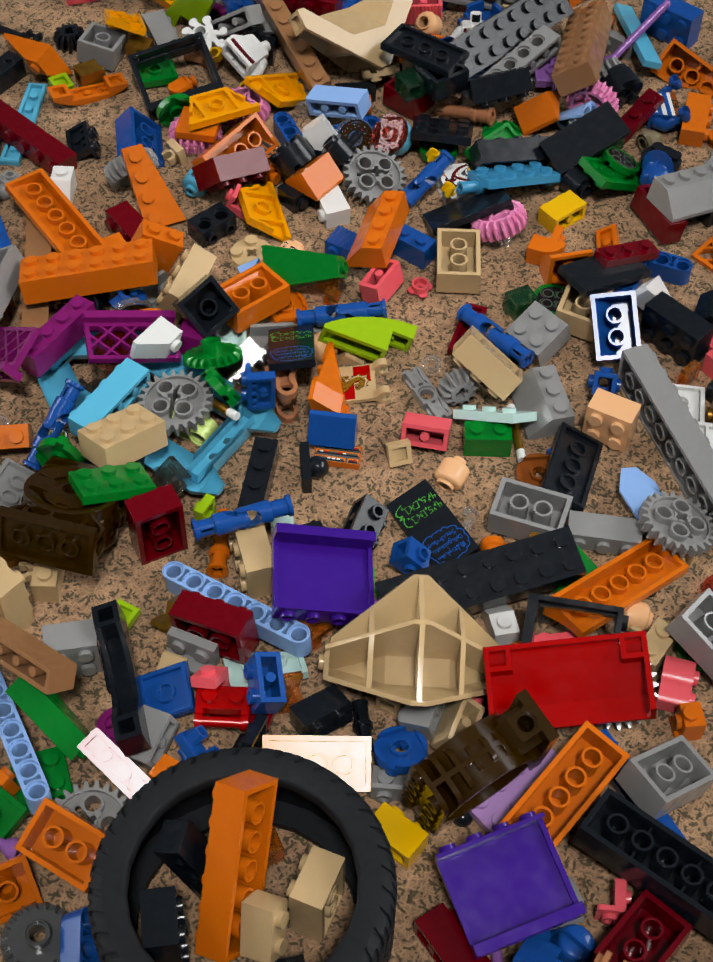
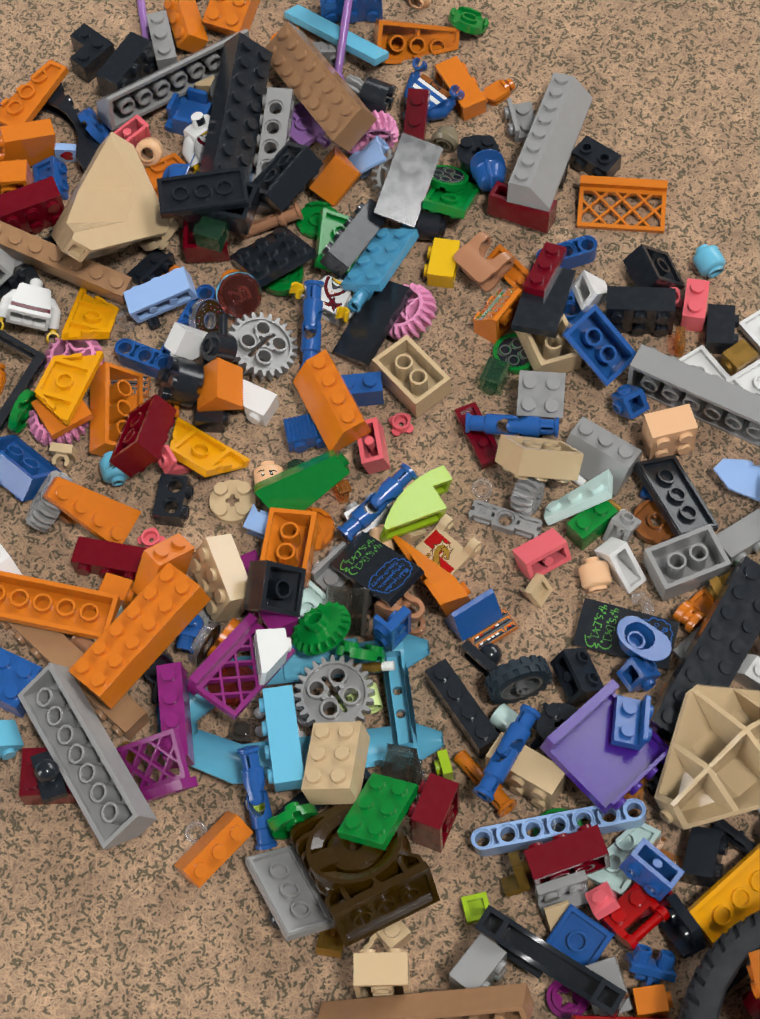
camera: 35 degrees left, 10 degrees up
(314, 490) = (518, 679): none -> black wheel
(359, 572) = (631, 722): none -> bracket
(434, 531) = (642, 639): none -> piece
(479, 482) = (622, 563): none -> white slope
(503, 457) = (622, 526): none -> light grey bracket
(543, 246) = (464, 310): orange brick -> none
(586, 225) = (482, 271): none -> nougat piece

